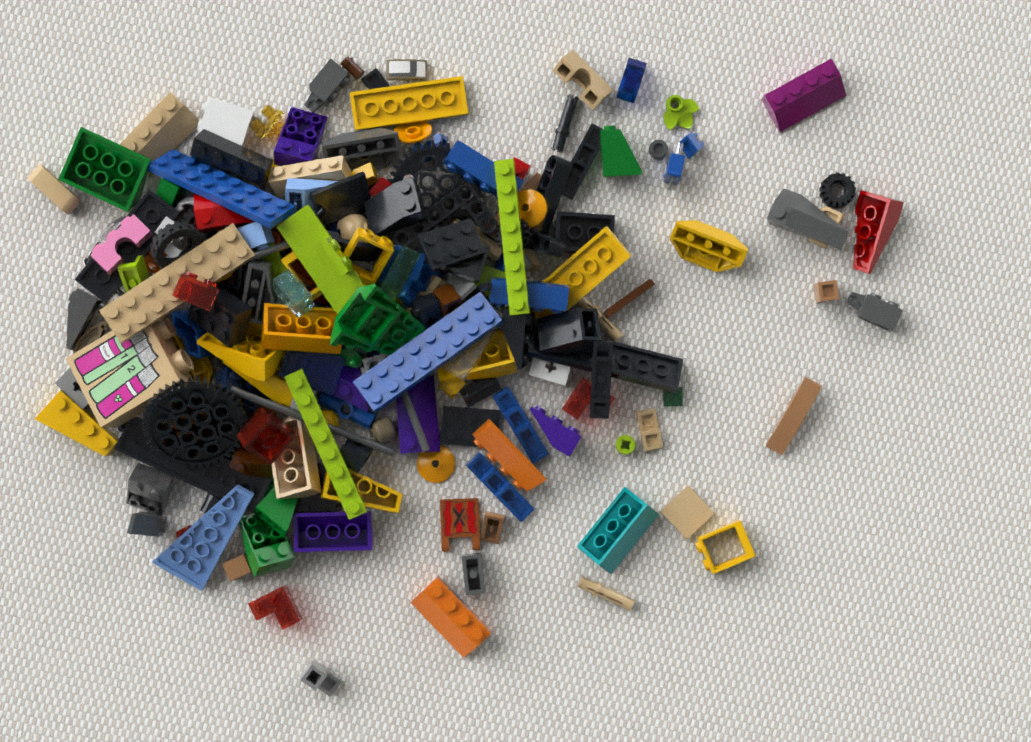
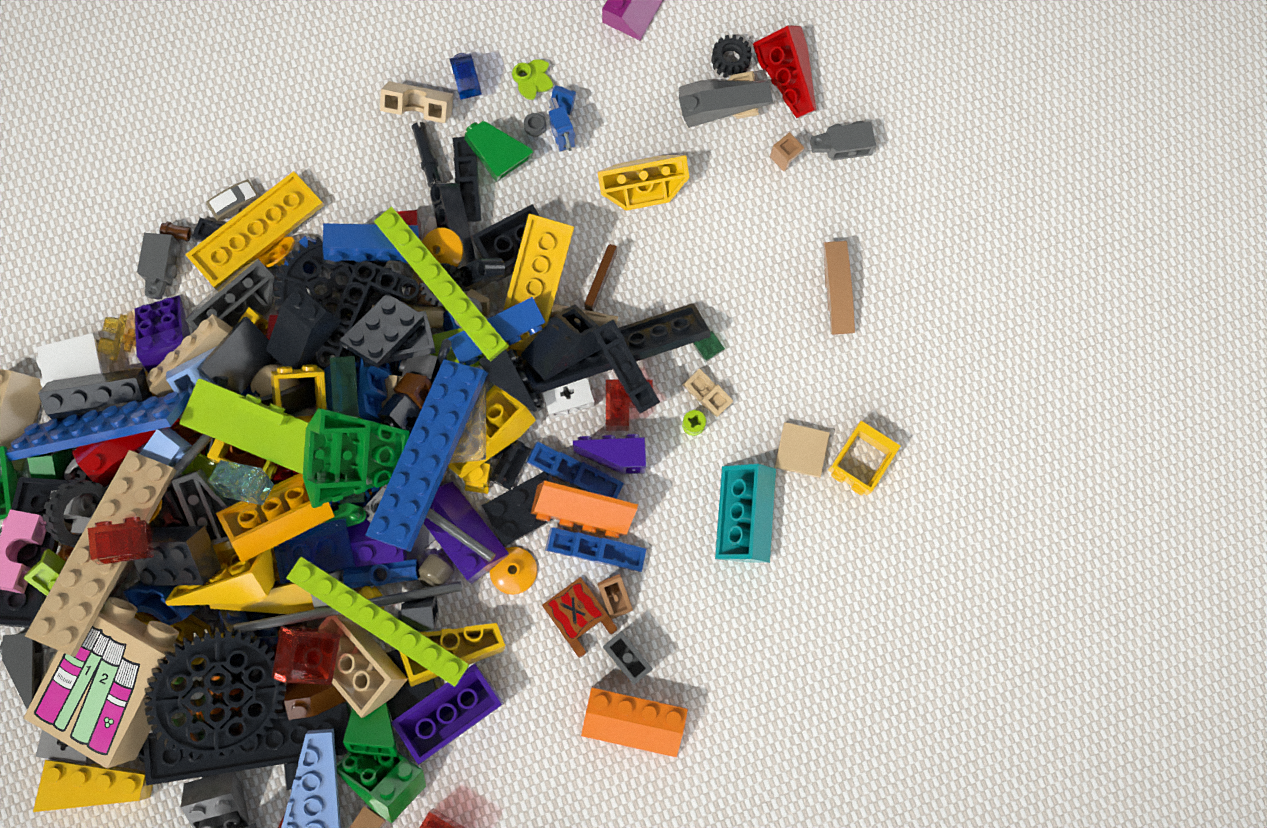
camera: 40 degrees left, 10 degrees down
(610, 595) = (768, 588): tan pin -> none

